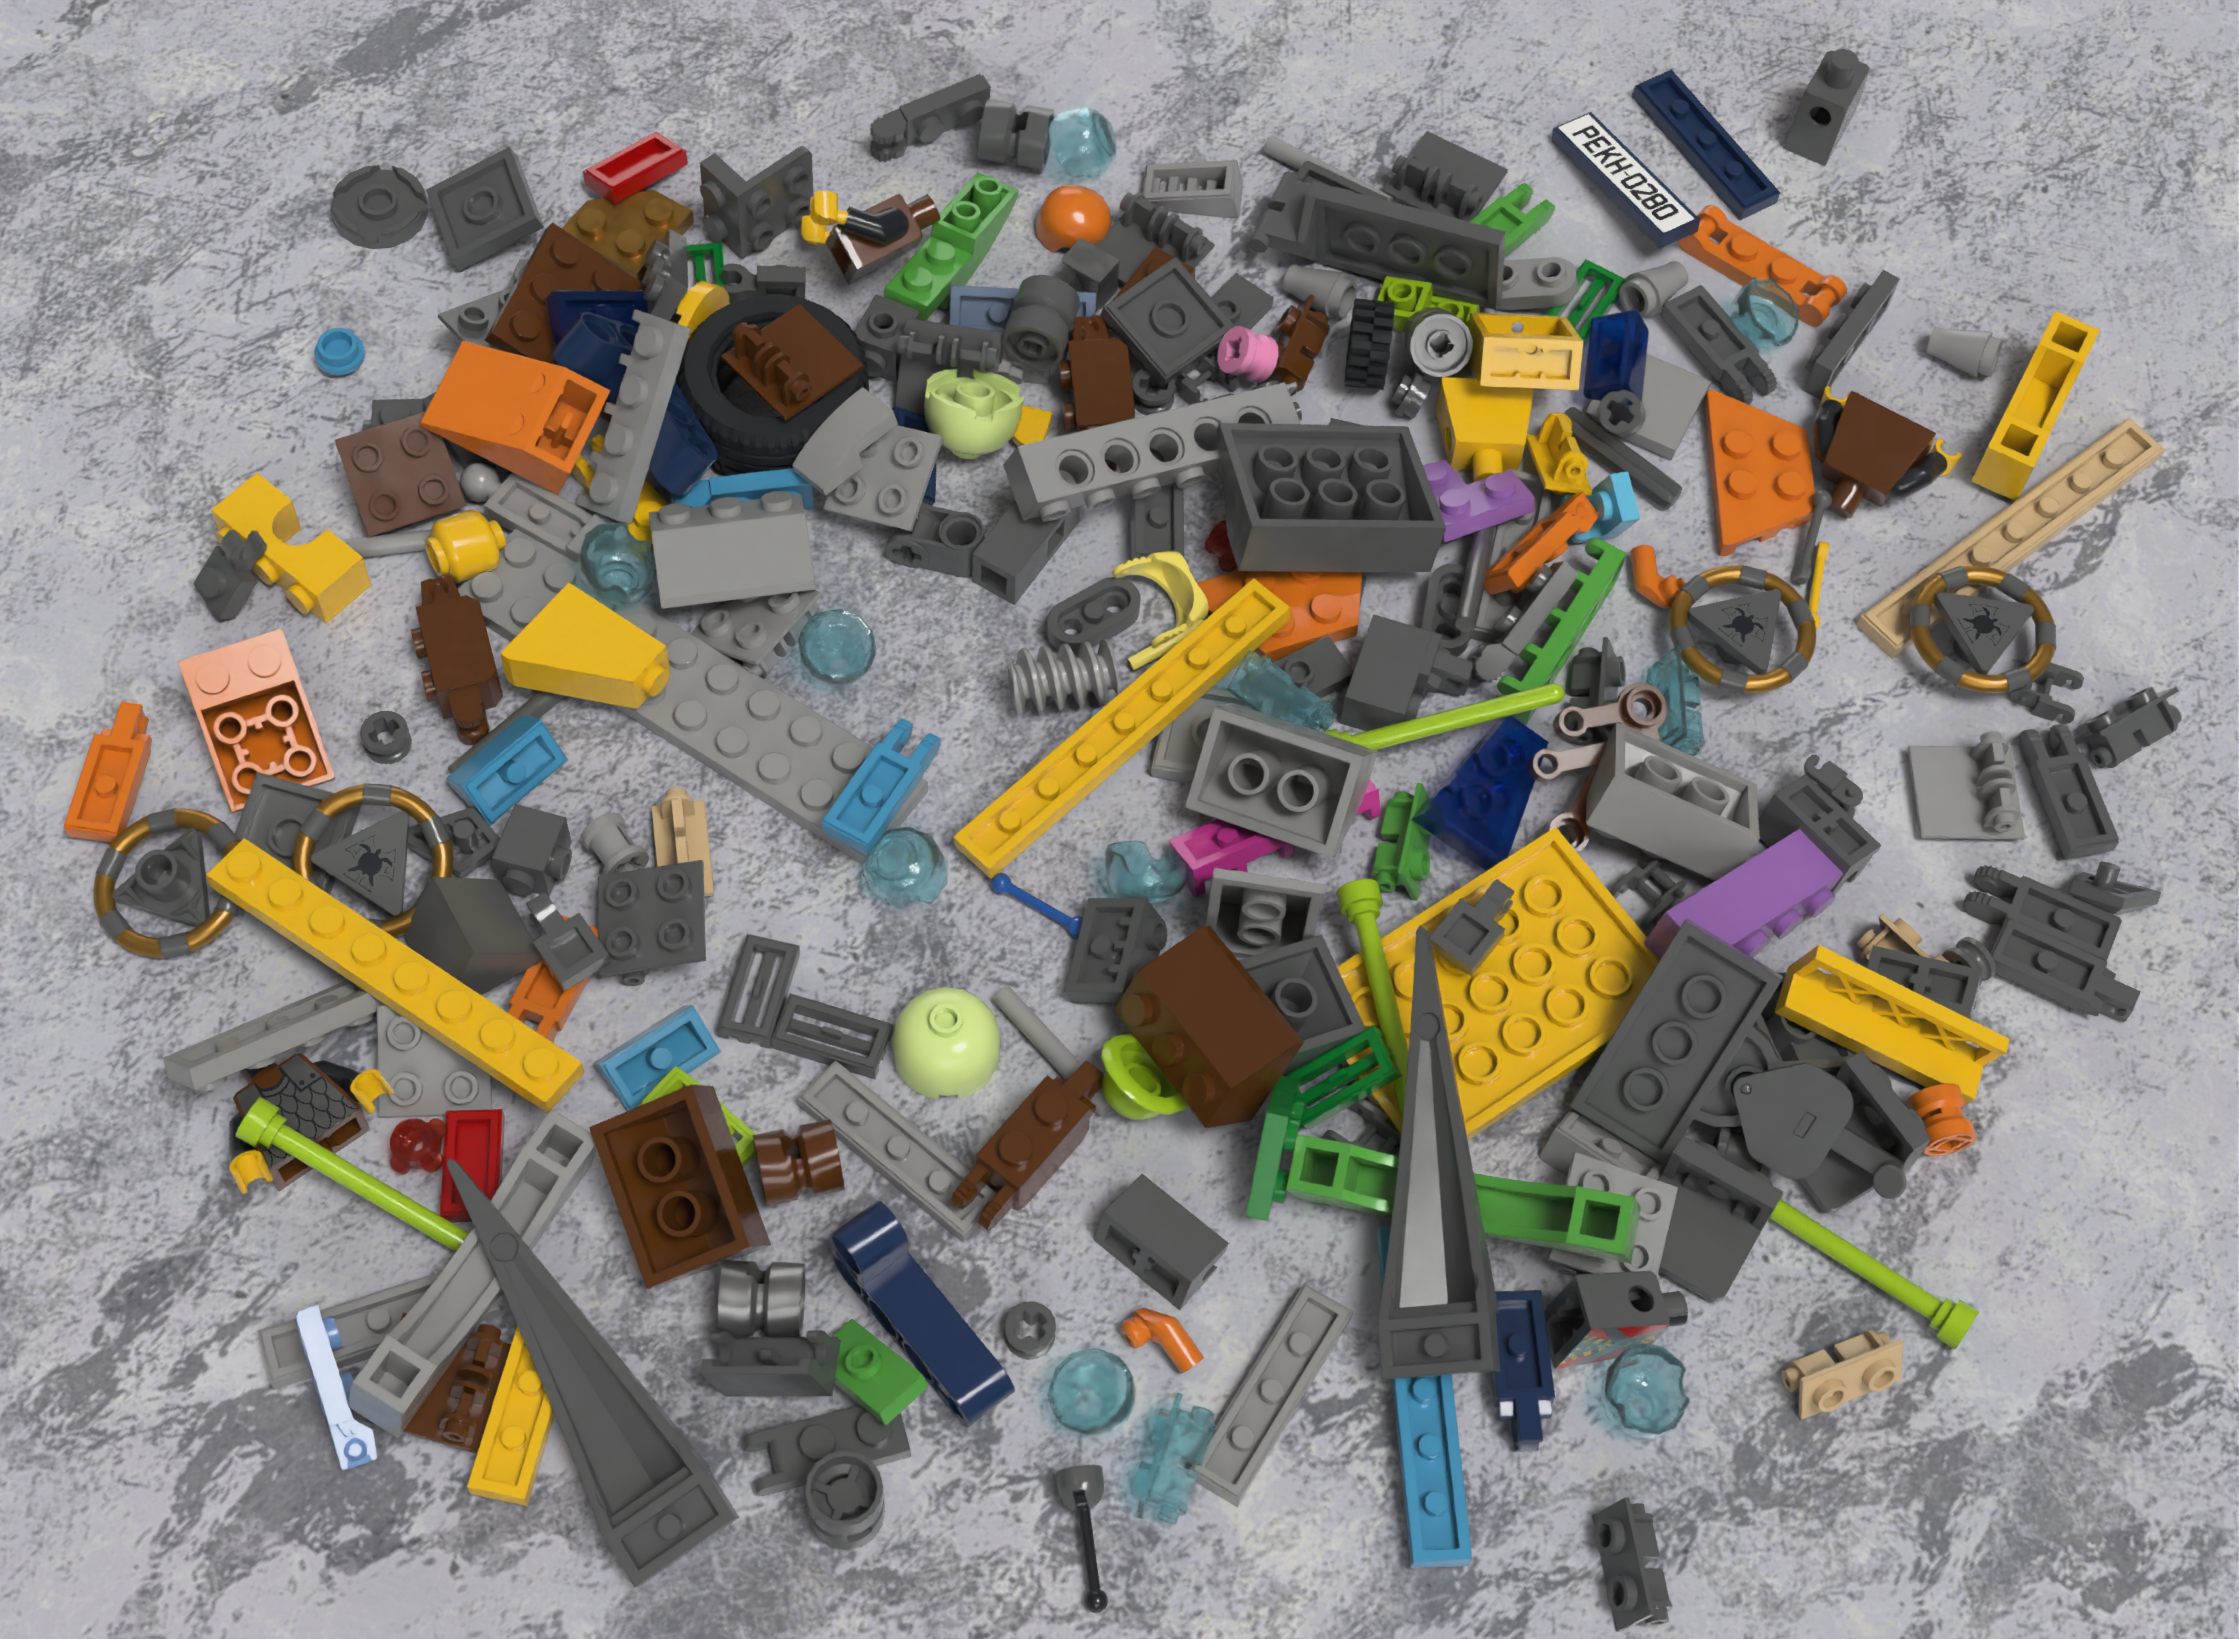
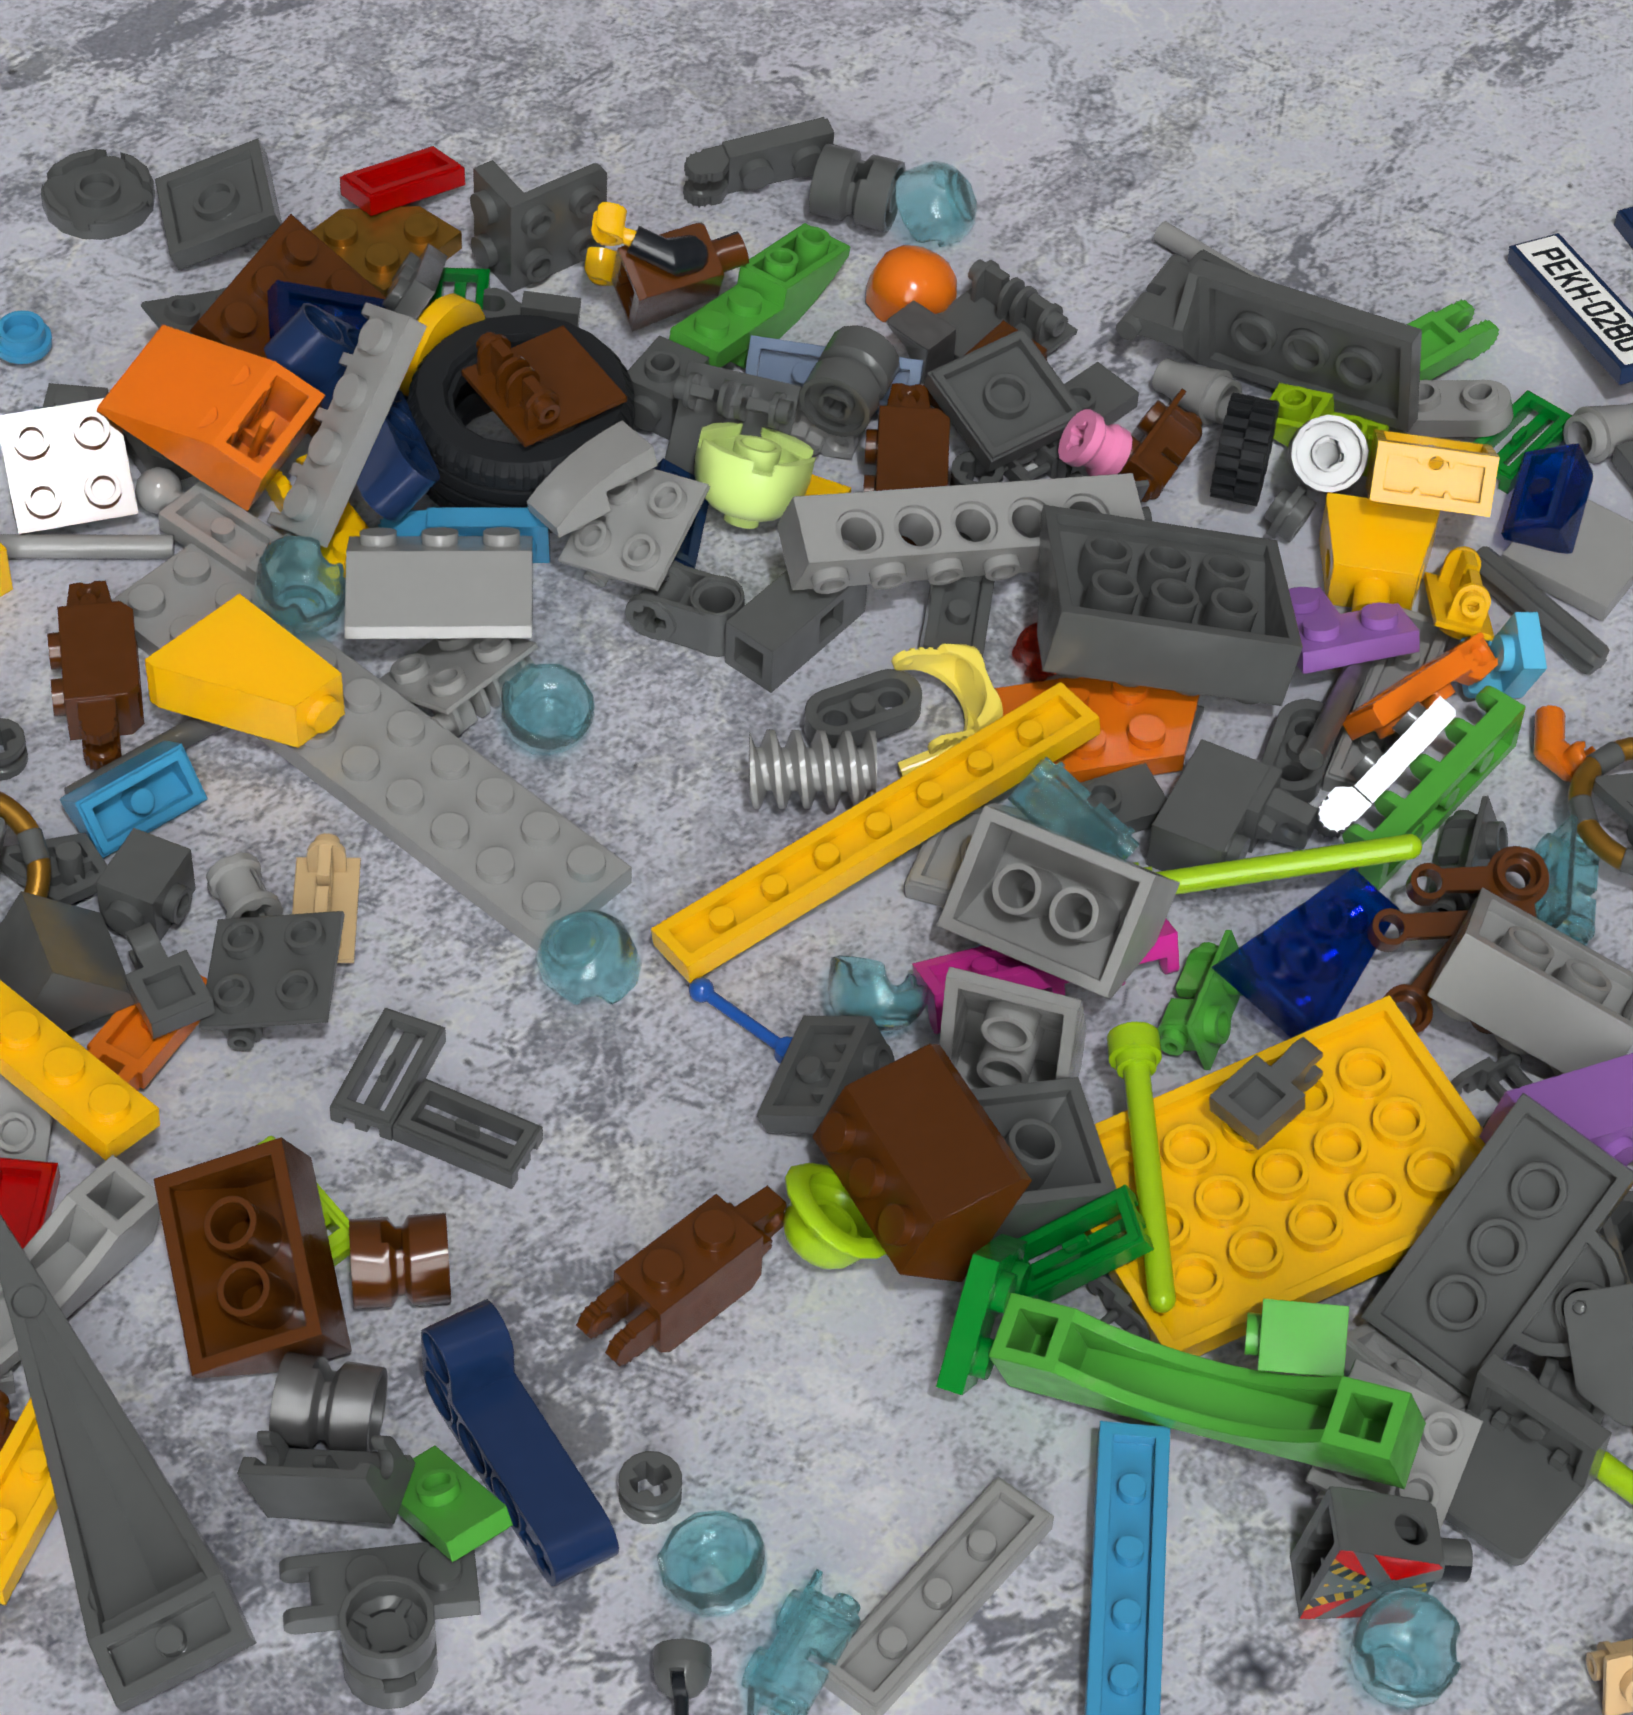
camera: 10 degrees right, 10 degrees down
(465, 545) = (128, 551): yellow head -> none
(648, 1057) = (280, 1111): dark azure slope -> none
(879, 789) = (570, 860): dark azure hinge -> none
(894, 1148) = (519, 1264): light grey tile -> none
(946, 1043) = (603, 1154): yellowish green cylinder -> none
(1044, 1040) = (723, 1167): light grey bar -> none
(1160, 1241) = (826, 1405): dark grey hinge -> none
(1163, 1330) = (814, 1507): orange arm -> none
(1208, 202) = (1082, 271): light grey slope -> none
(1438, 1270) = (1161, 1468): dark grey plate -> none
(1444, 179) = (1371, 281): dark grey hinge -> none
(1525, 1381) = (1253, 1600): dark blue hinge -> none
(1530, 1143) = (1298, 1337): none -> bright green brick
(1621, 398) = (1539, 571): dark grey bush -> none

